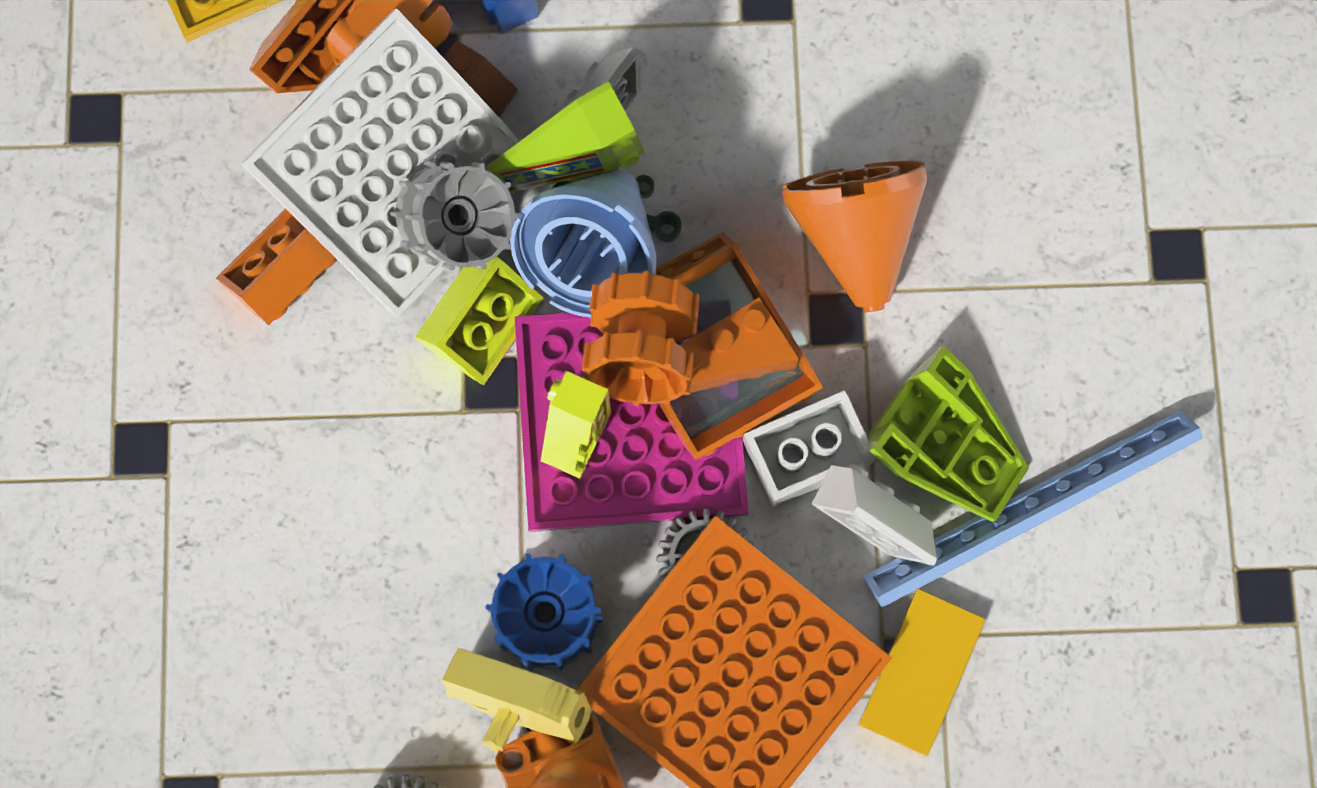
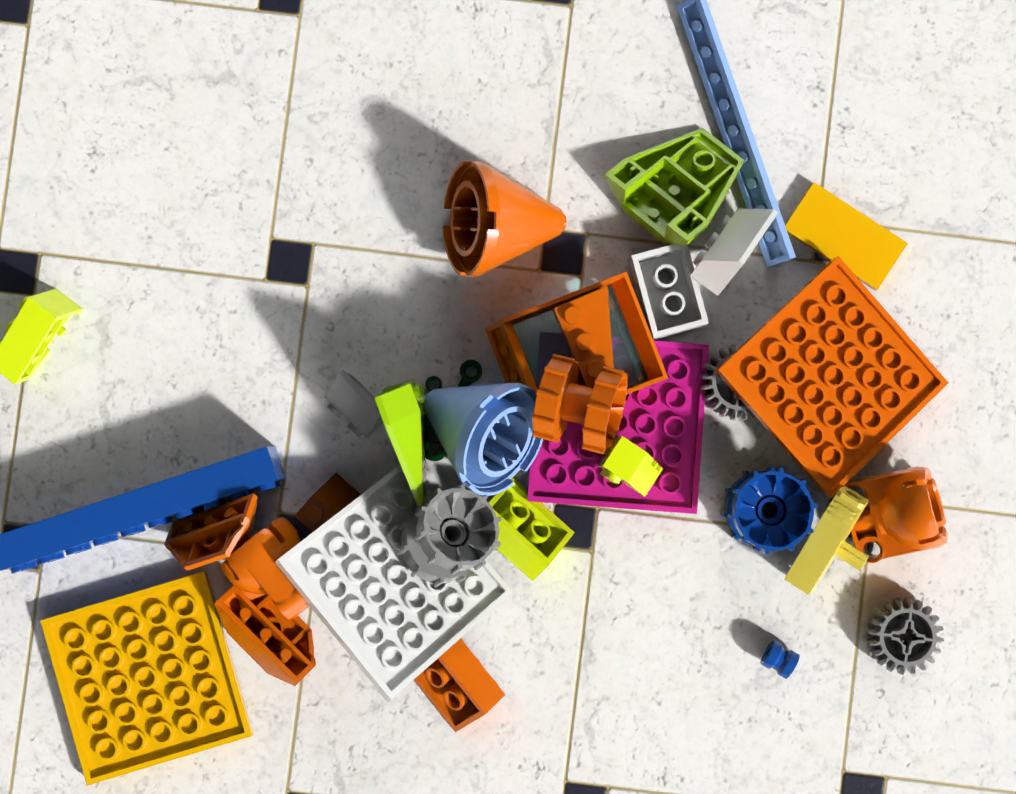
camera: 80 degrees left, 10 degrees up
(355, 665) = (780, 659): none -> blue wheel

